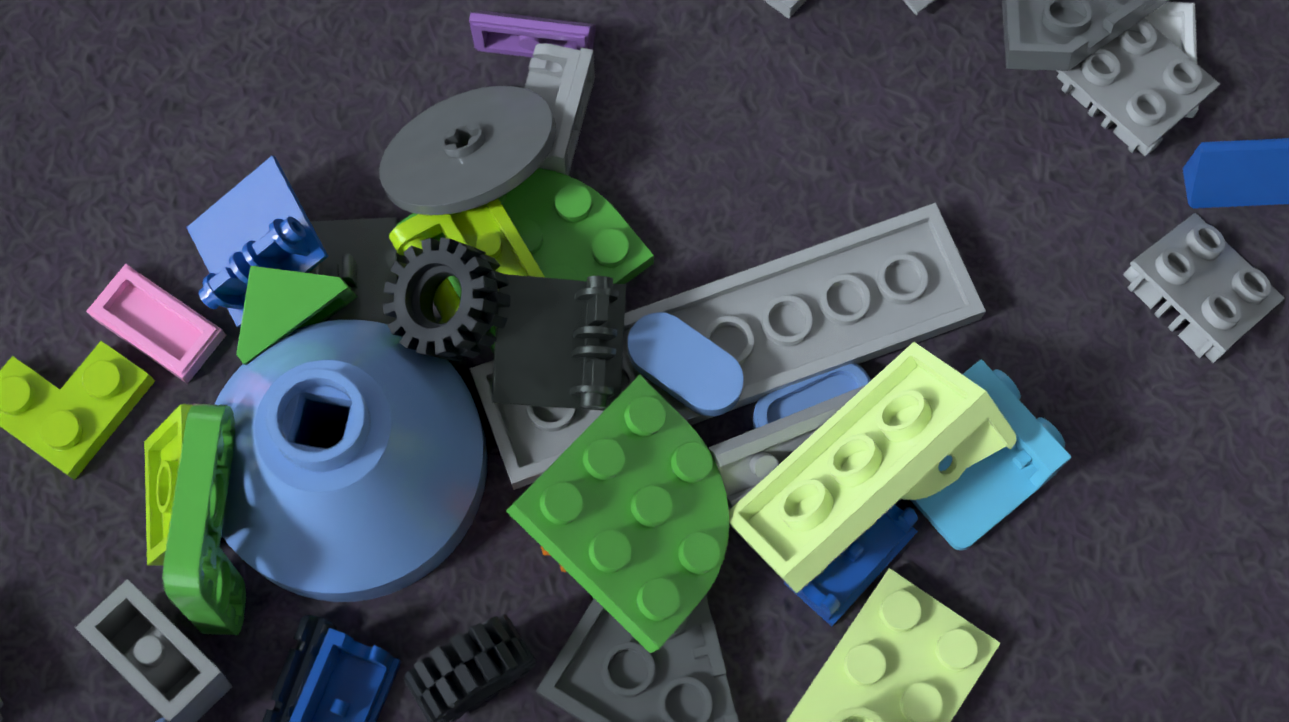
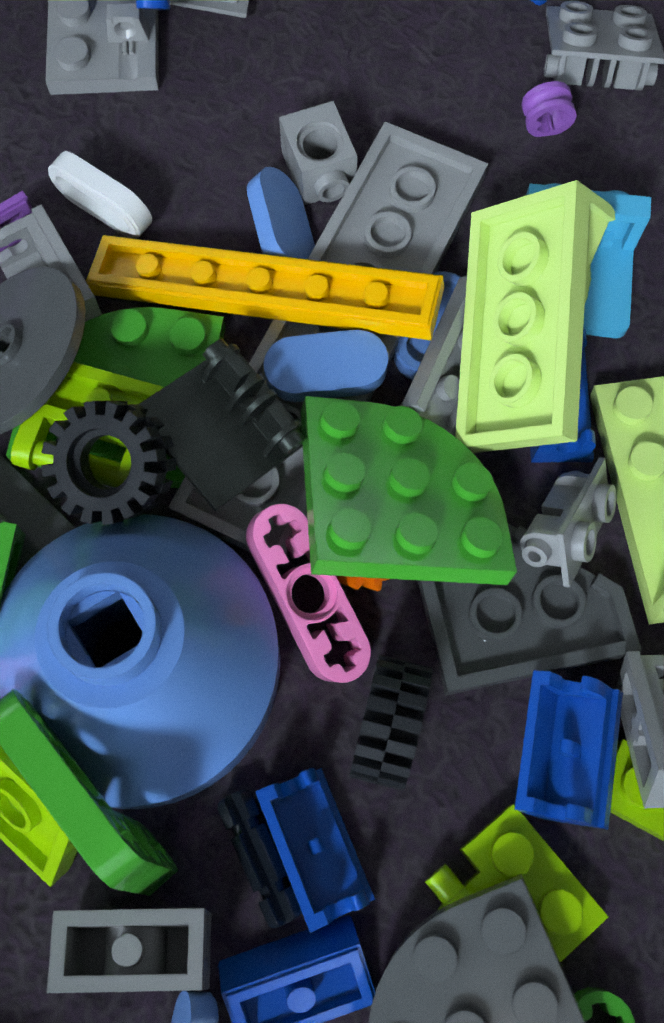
camera: 45 degrees left, 0 degrees up
(477, 568) = (335, 601): none -> bright pink beam
(651, 75) = (99, 195): none -> white tile
(706, 263) = (268, 286): none -> yellow tile
(771, 215) = (279, 215): none -> medium blue tile
(774, 652) = (570, 521): none -> light grey hinge
(860, 163) = (318, 152): none -> light grey brick
(1090, 307) = (548, 109): none -> medium lavender bush

